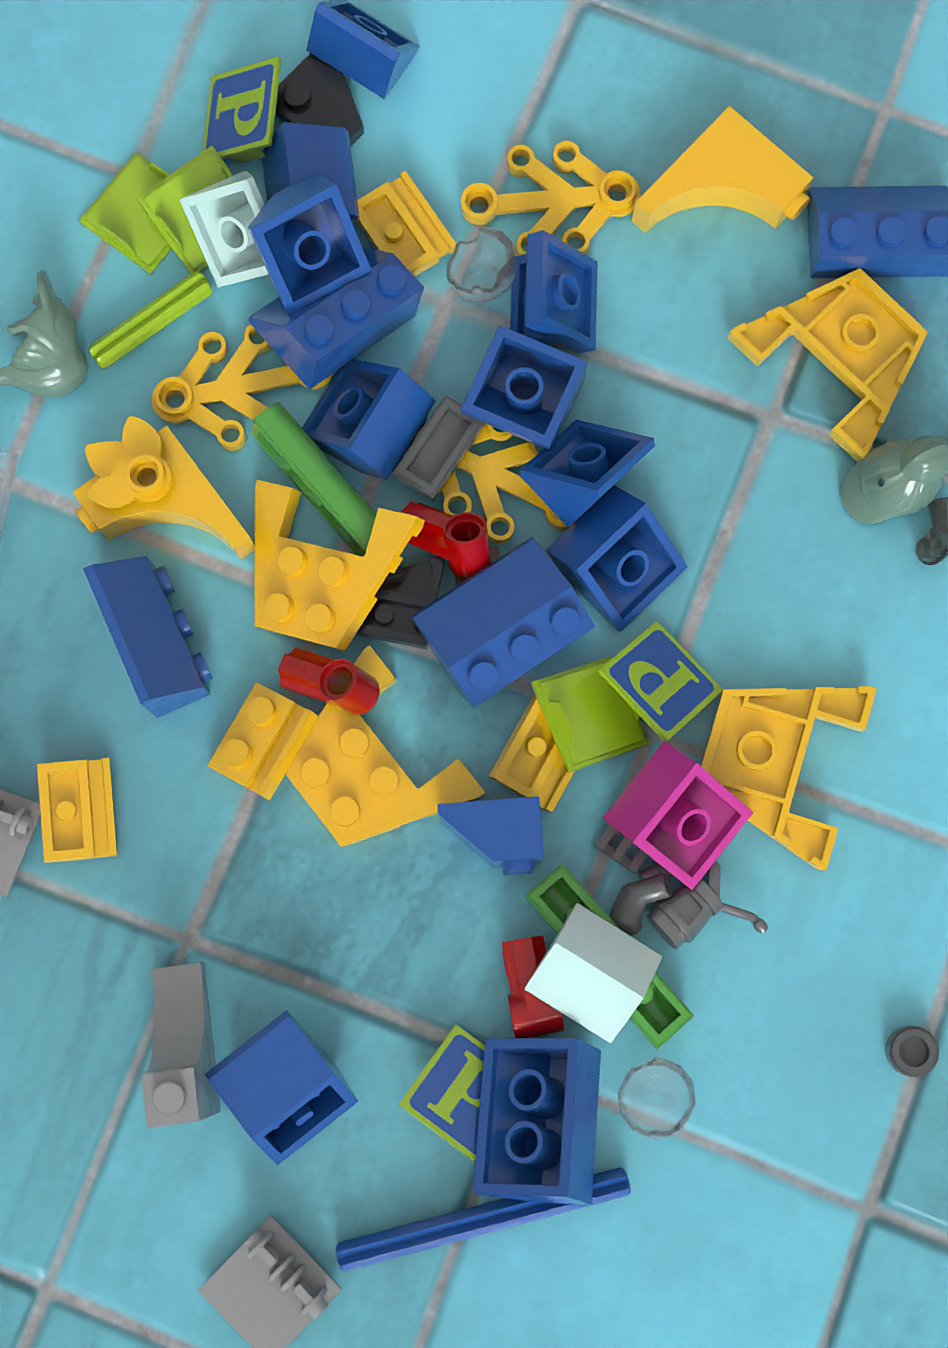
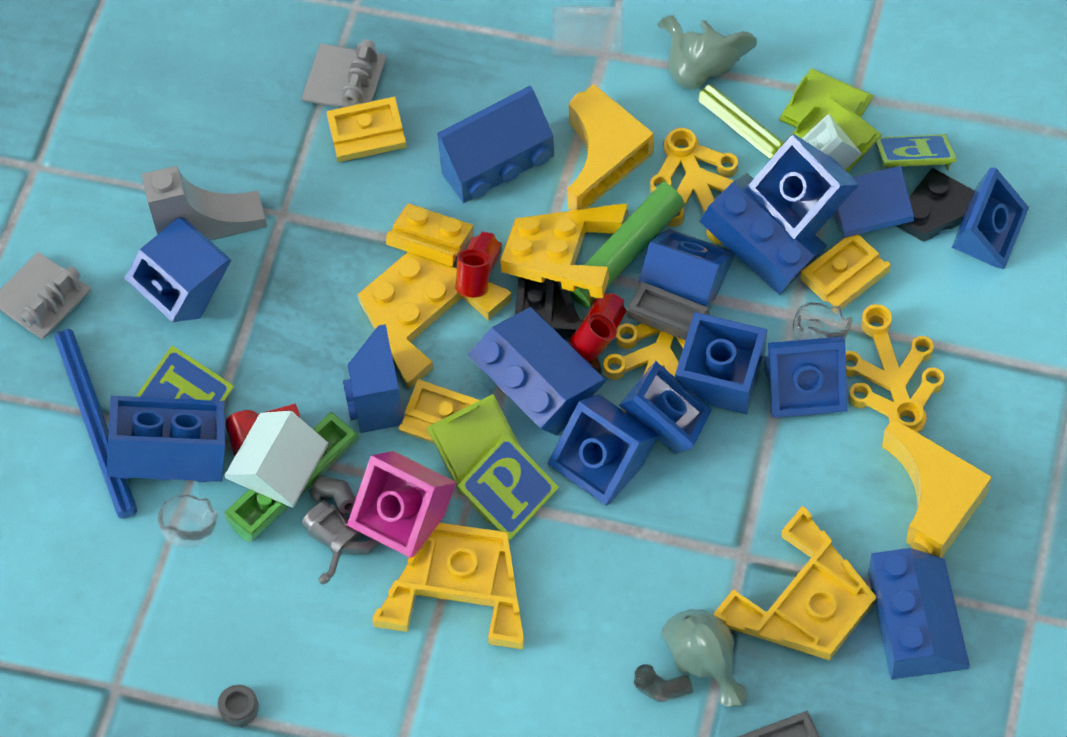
camera: 85 degrees right, 20 degrees down
(125, 463) = (615, 109): yellow plate -> none

